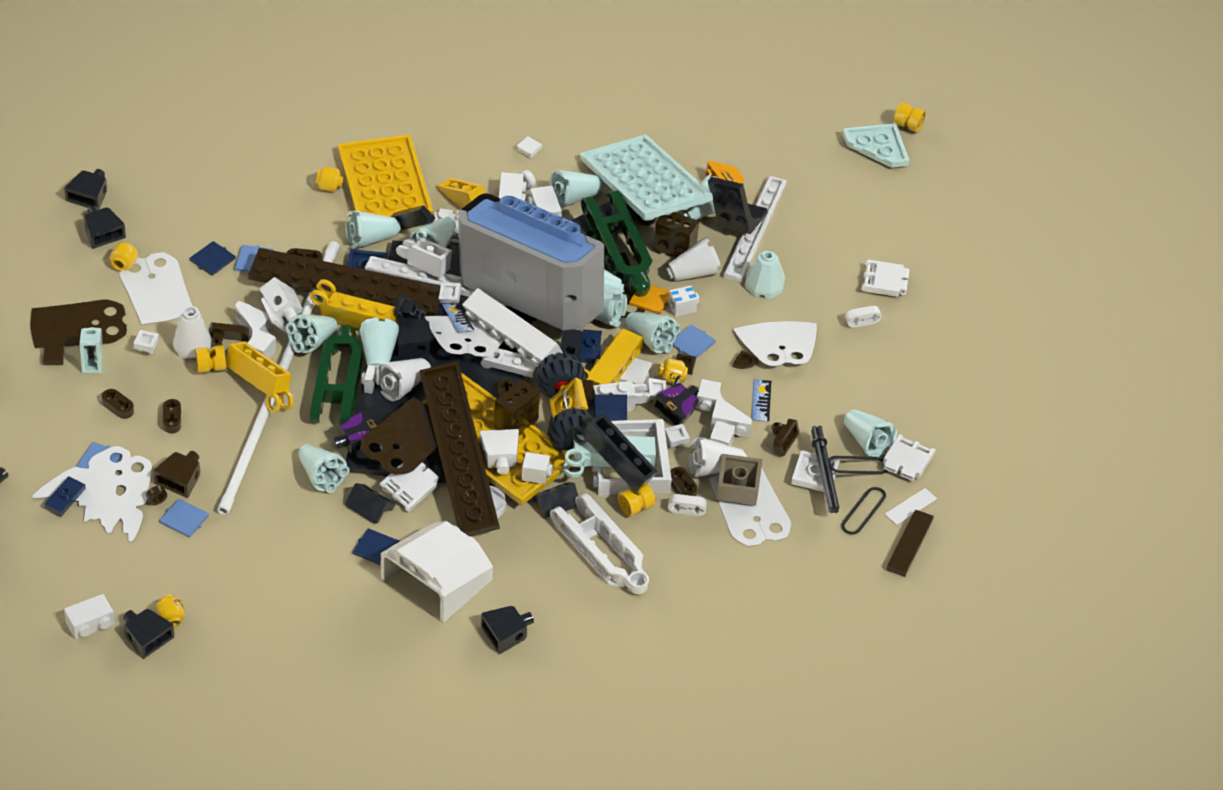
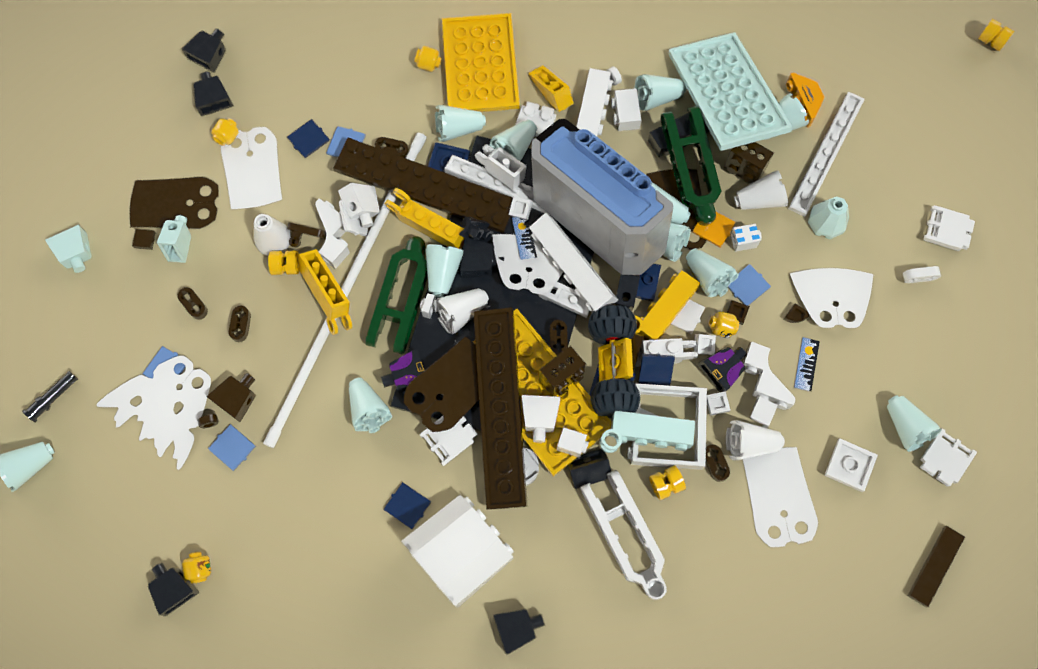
camera: 15 degrees right, 25 degrees up
(65, 496) = (124, 411): dark blue plate -> none
(89, 616) = (120, 564): white brick -> none
(146, 341) = (228, 235): white tile -> none
(309, 331) = (381, 243): light aqua cone -> none
(368, 502) = (408, 451): black panel -> none
(414, 217) = (497, 117): black tile -> none
(529, 147) = (621, 36): white tile -> none
(616, 450) = (653, 443): black hinge -> none
(687, 505) = (717, 493): white beam -> none
(732, 206) = (812, 137): black bracket -> none
(739, 479) = (774, 473): dark tan slope -> none
(785, 436) = (829, 414): dark brown piece -> none
(819, 444) = (862, 475): black axle -> none
(855, 457) = (892, 456): black piece -> none
(870, 515) = (886, 510): black piece -> none
(879, 143) = (961, 62): light aqua plate -> none
(908, 507) = (941, 516): white sticker -> none

